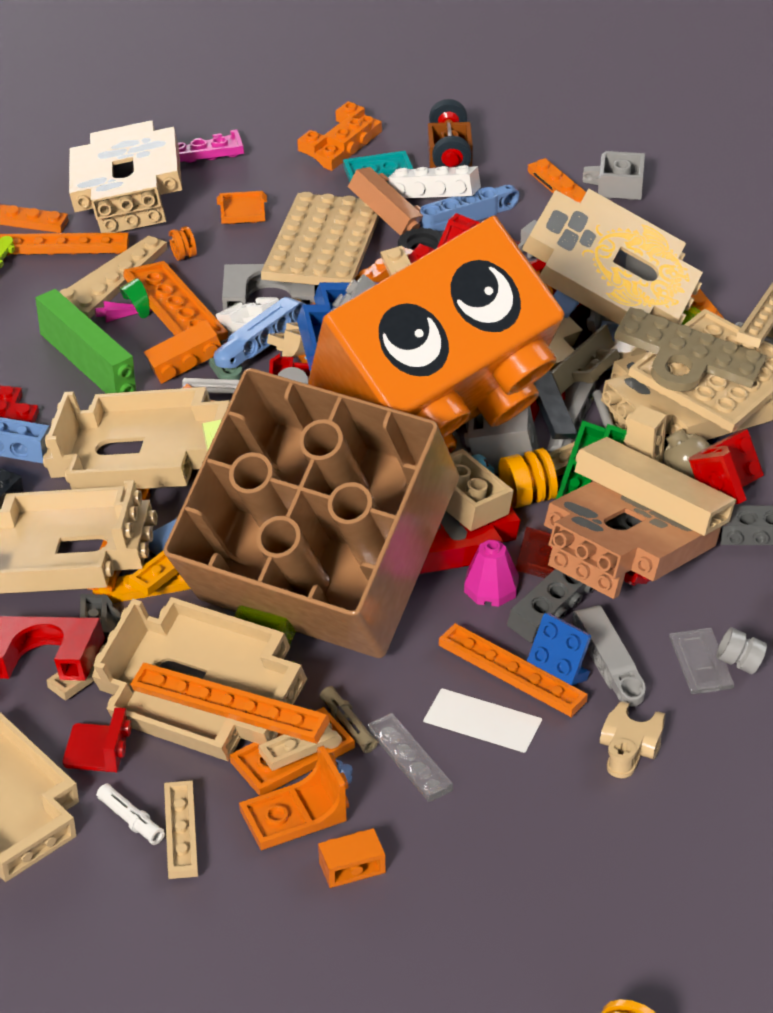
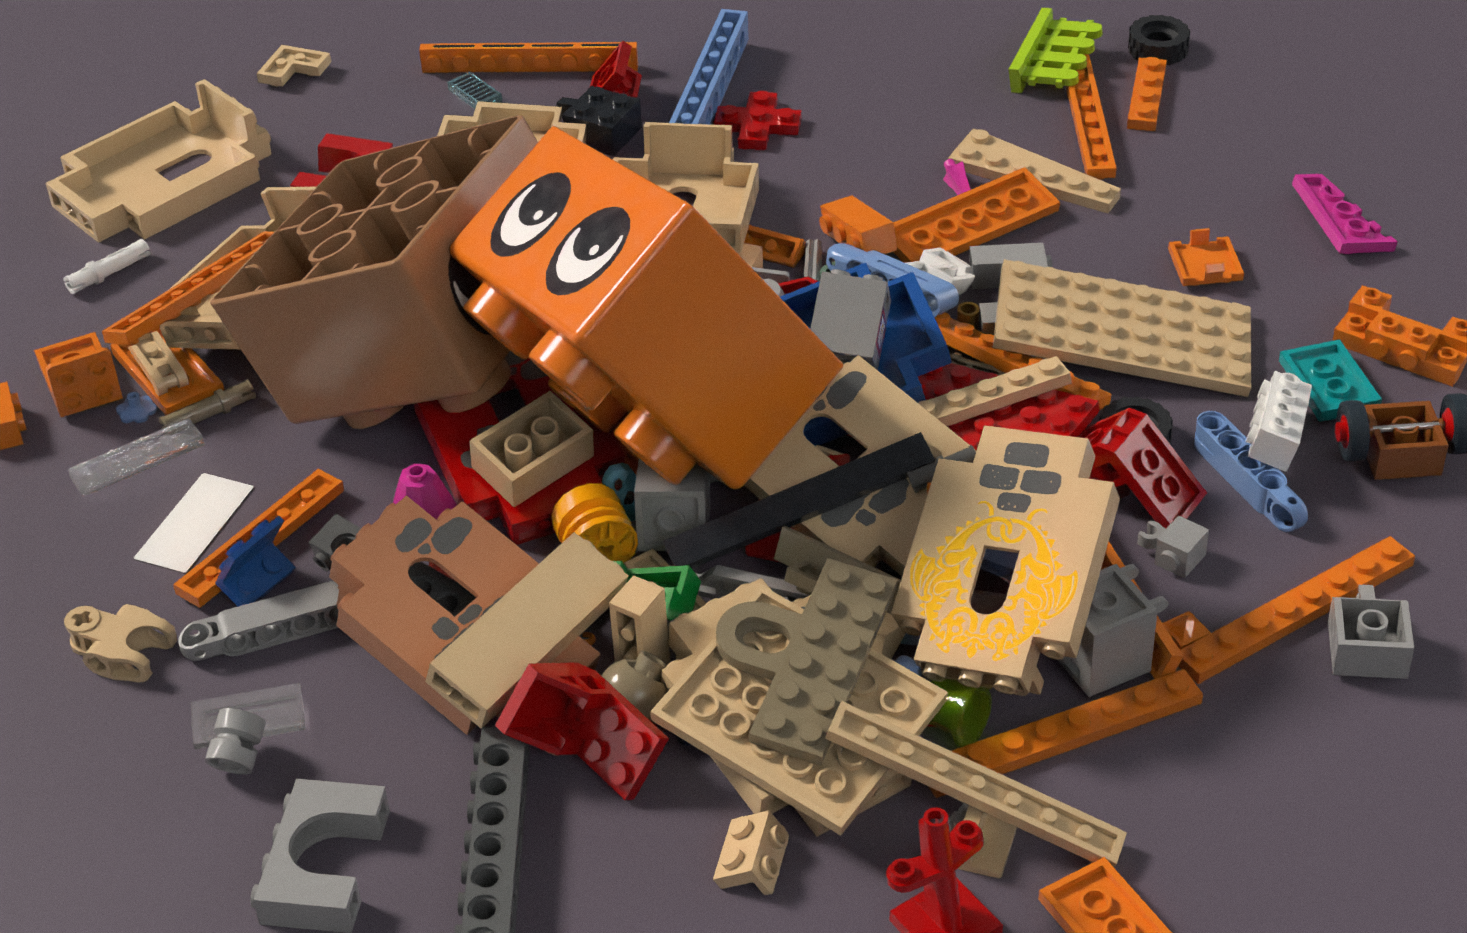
camera: 90 degrees right, 0 degrees up
(85, 343) = (859, 151): bright green brick -> none
(98, 746) = (200, 234): red bracket -> none
(130, 200) = (1271, 150): panel -> none
(138, 296) = (970, 176): green helmet -> none
(180, 830) = (75, 300): tan plate -> none
(182, 243) = (1095, 209): orange wheel -> none
(385, 200) = (1220, 371): nougat brick -> none

